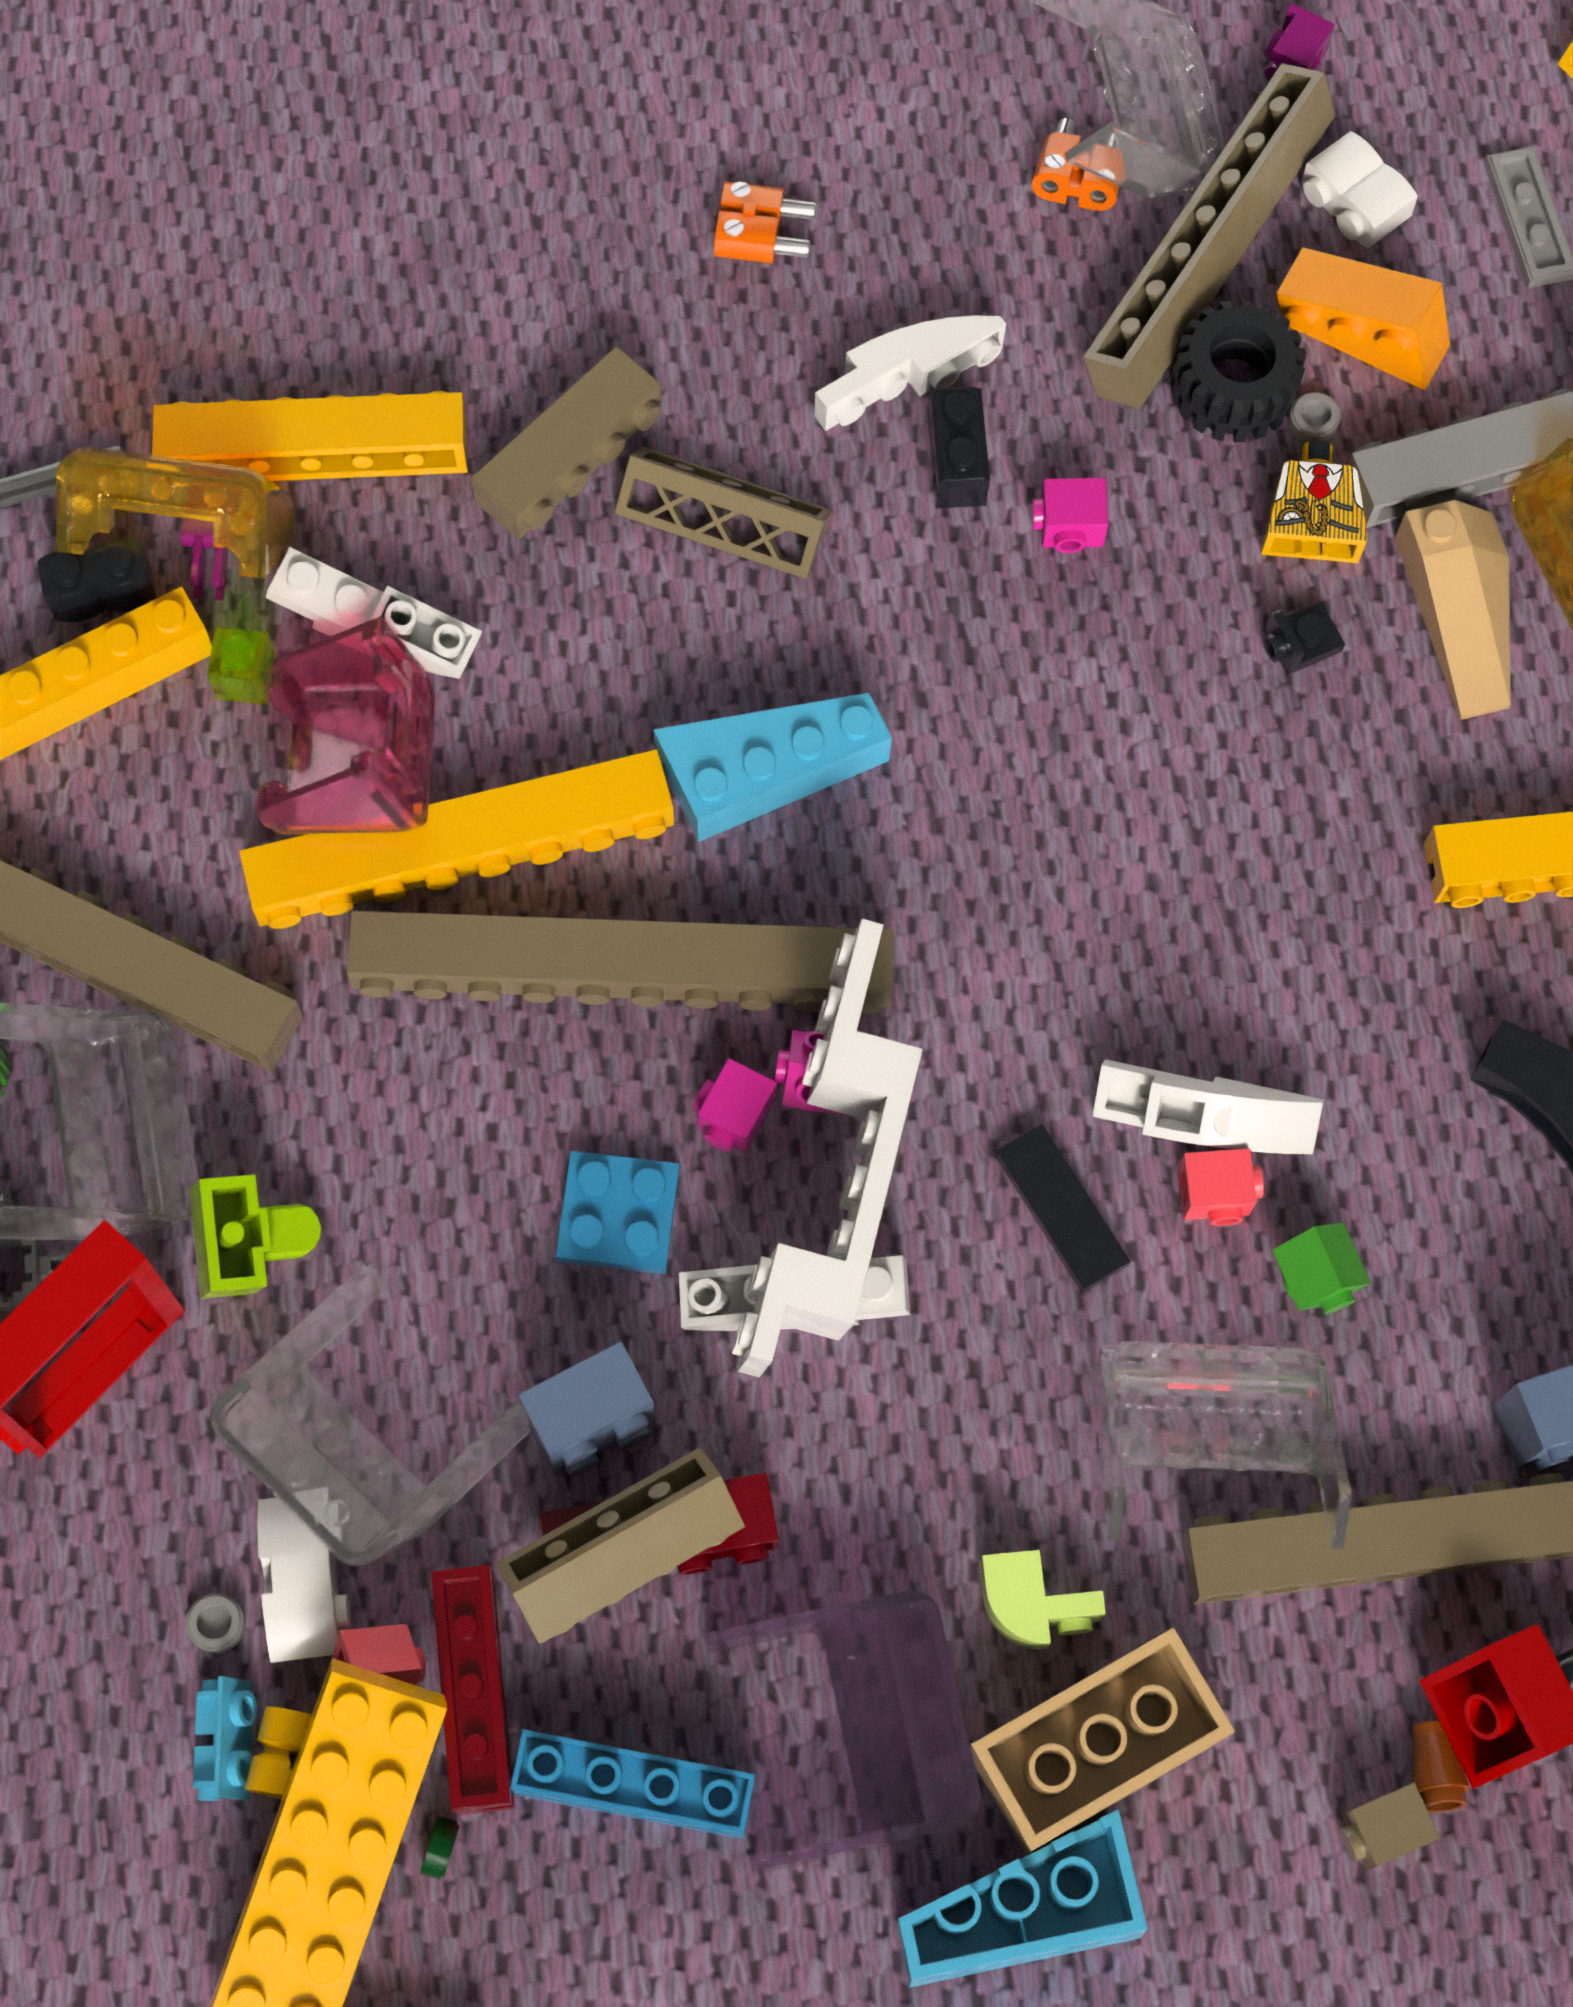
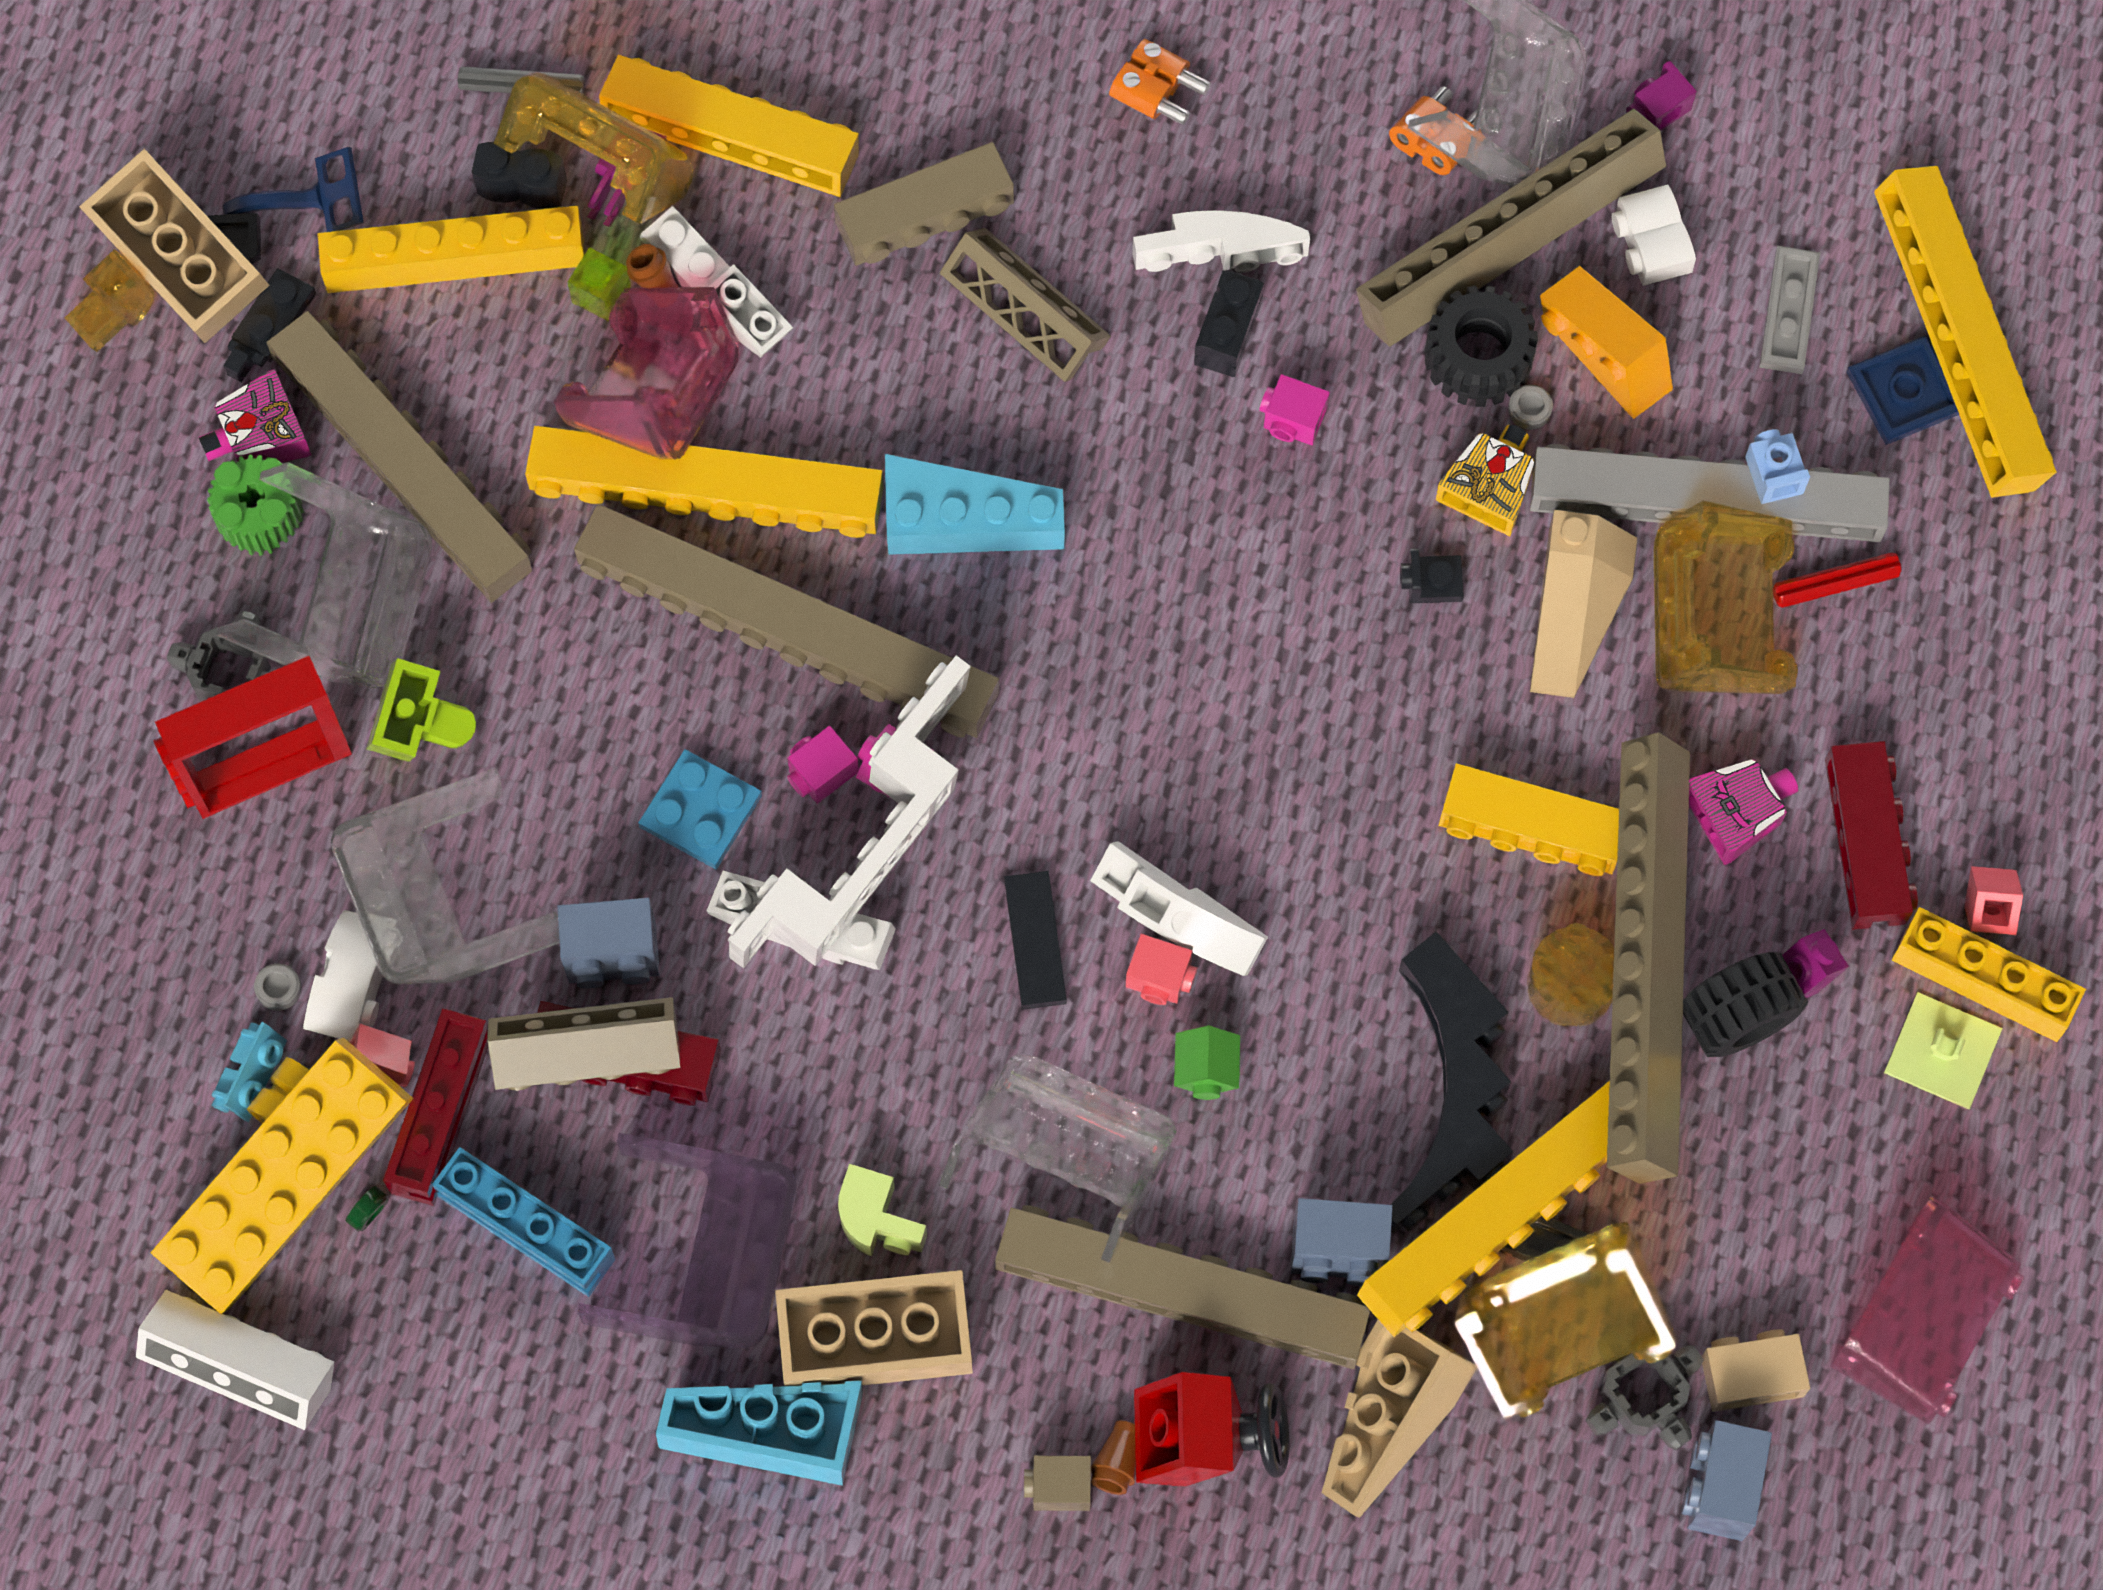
camera: 25 degrees right, 0 degrees up
(293, 624) = (650, 267): none -> dark orange cone

